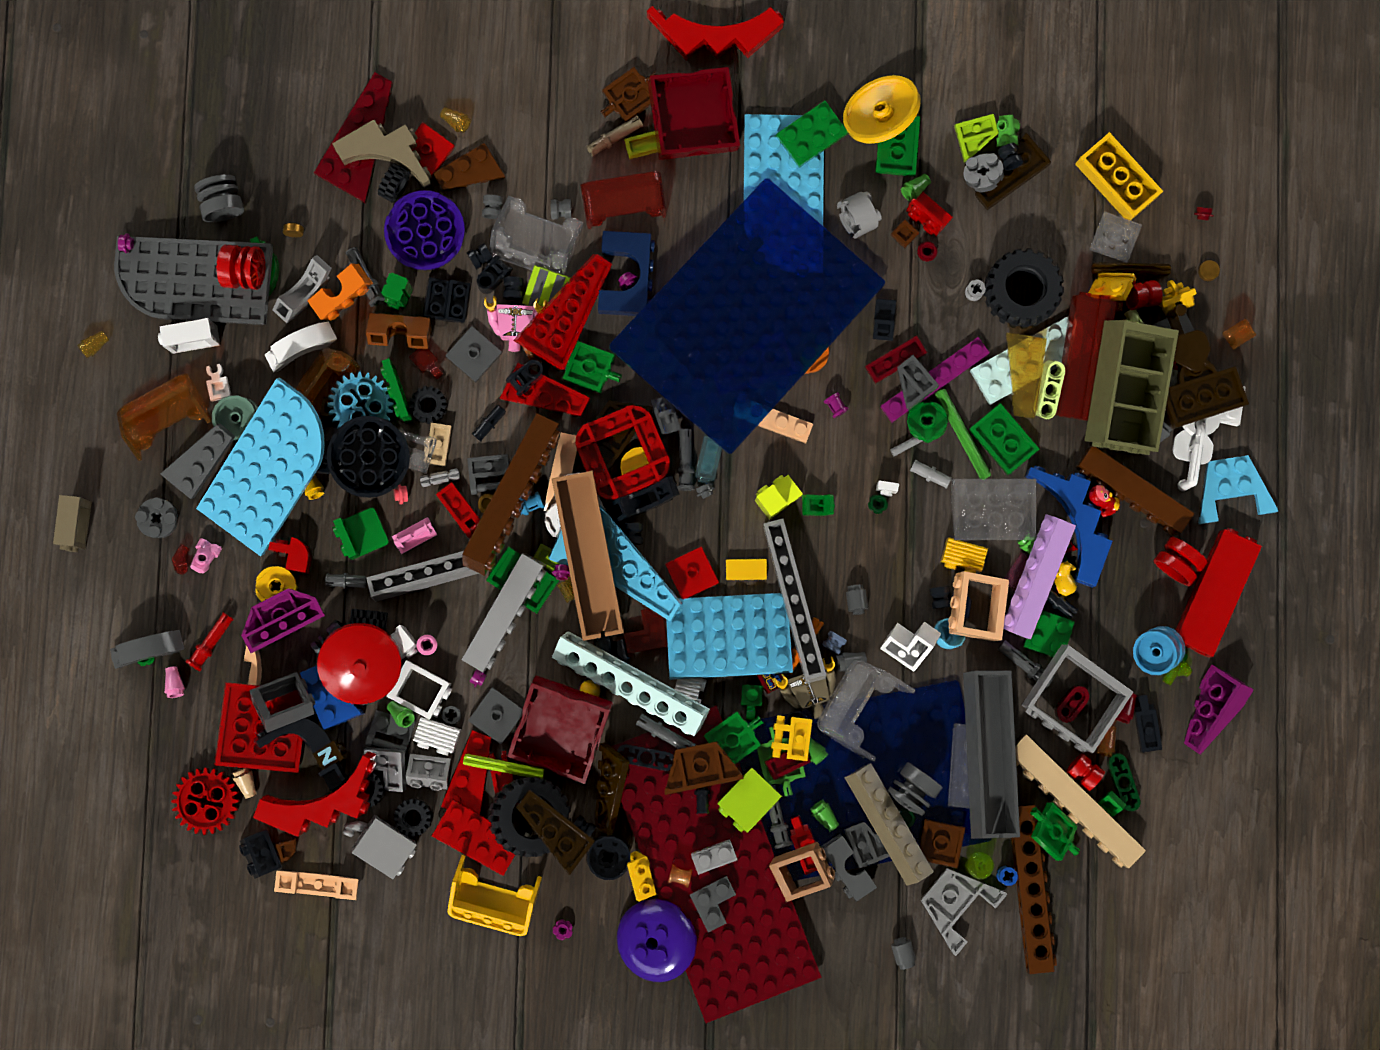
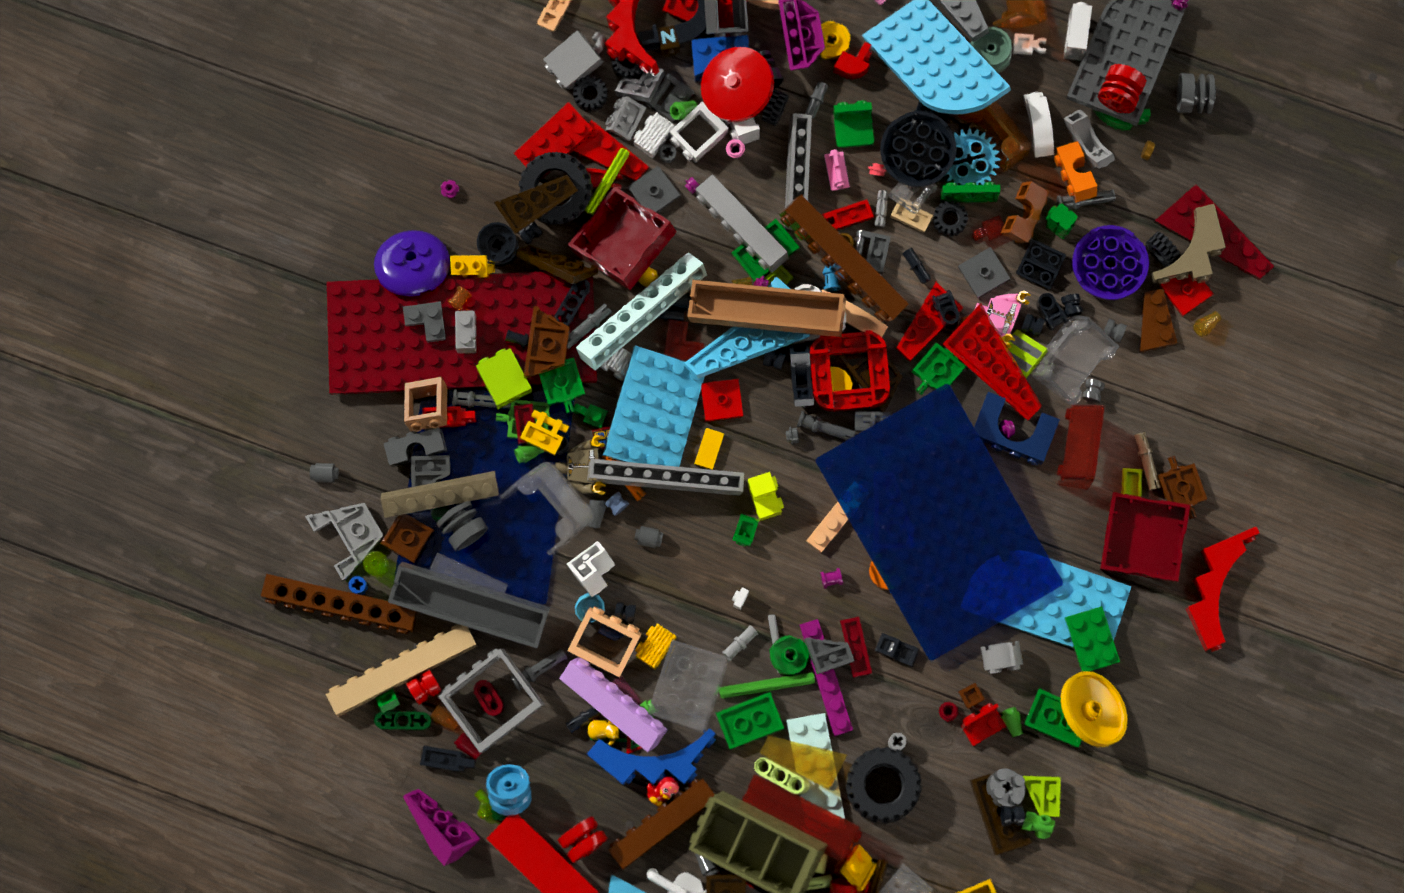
camera: 115 degrees right, 5 degrees down
(314, 489) = (907, 98): yellow cone -> none
(491, 905) = (493, 134): yellow windscreen -> none
(708, 461) = (814, 444): clear light blue brick -> none
(823, 813) = (467, 443): bright green cone -> none
(883, 503) = (729, 581): dark green plate -> none
(1049, 634) = (559, 700): green plate -> none
(1054, 831) = (381, 639): green plate -> none

